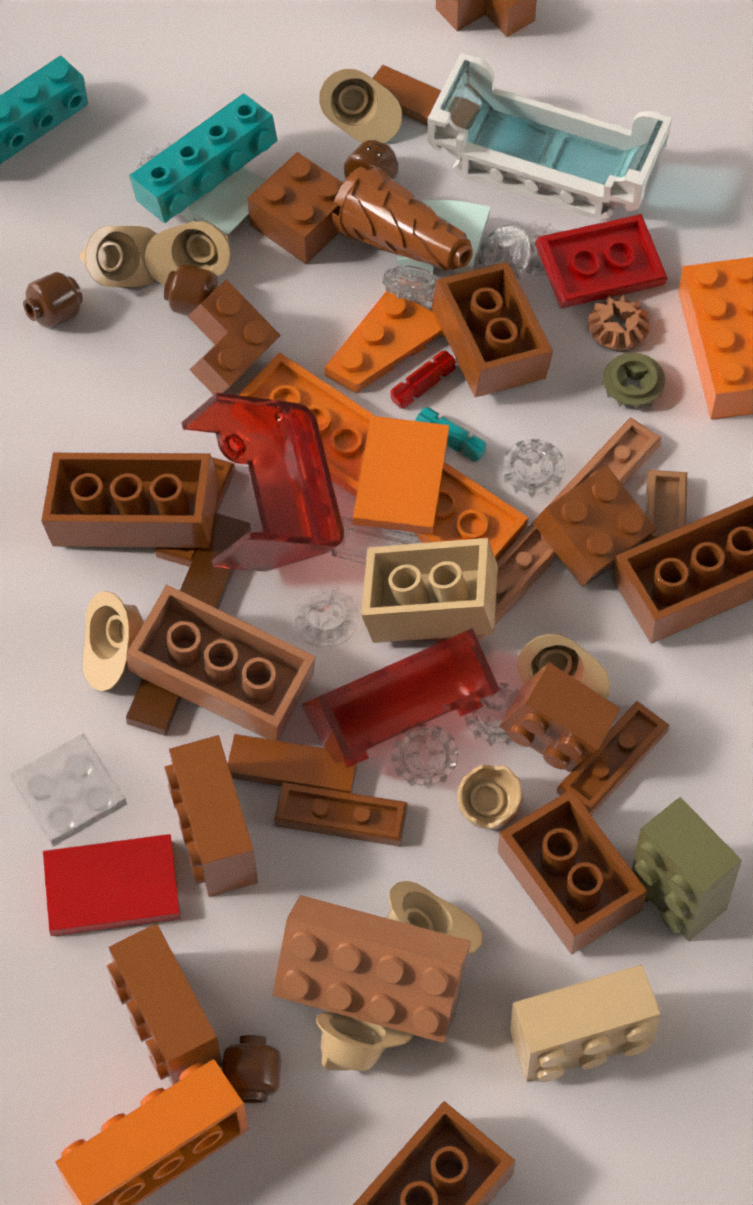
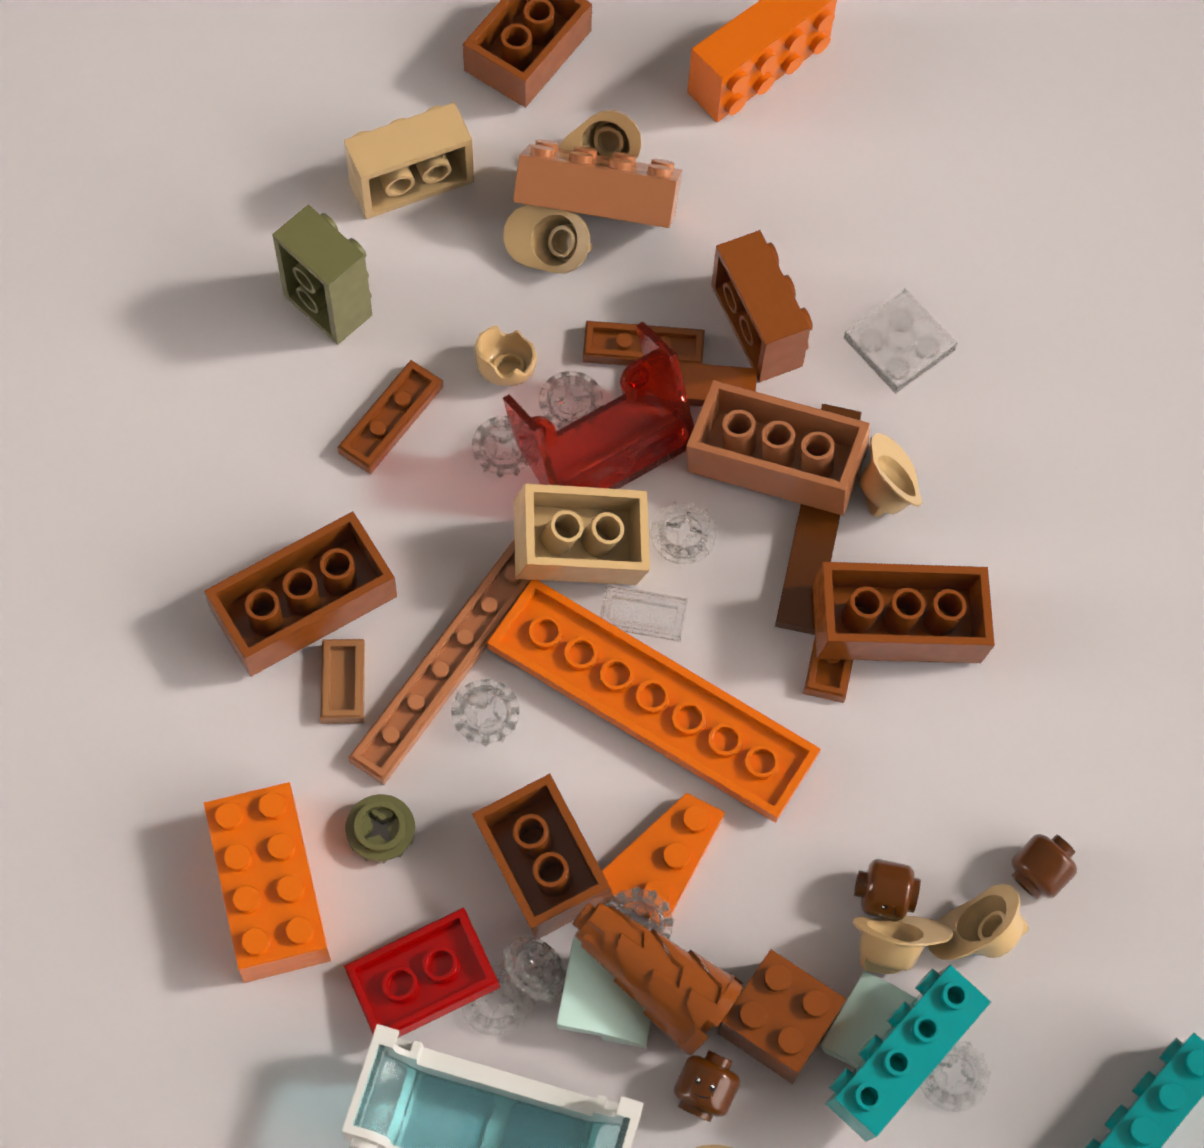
camera: 170 degrees right, 5 degrees up
(111, 885) = (844, 266): red tile -> none
(161, 1004) = (773, 146): dark orange brick -> none
(237, 333) = (829, 818): dark orange brick -> none
(252, 1068) = (691, 119): reddish brown head -> none
(287, 476) = (732, 643): clear red windscreen -> none
(401, 475) = (624, 671): orange tile -> none
(423, 379) = (614, 810): red axle -> none
(458, 437) = (577, 745): teal axle -> none
(559, 718) = (444, 411): dark orange brick -> none
(566, 656) = (445, 485): tan piece -> none
(571, 871) = (428, 291): dark orange brick -> none
(594, 525) = (417, 626): dark orange brick -> none
(610, 333) = (390, 923): nougat gear -> none

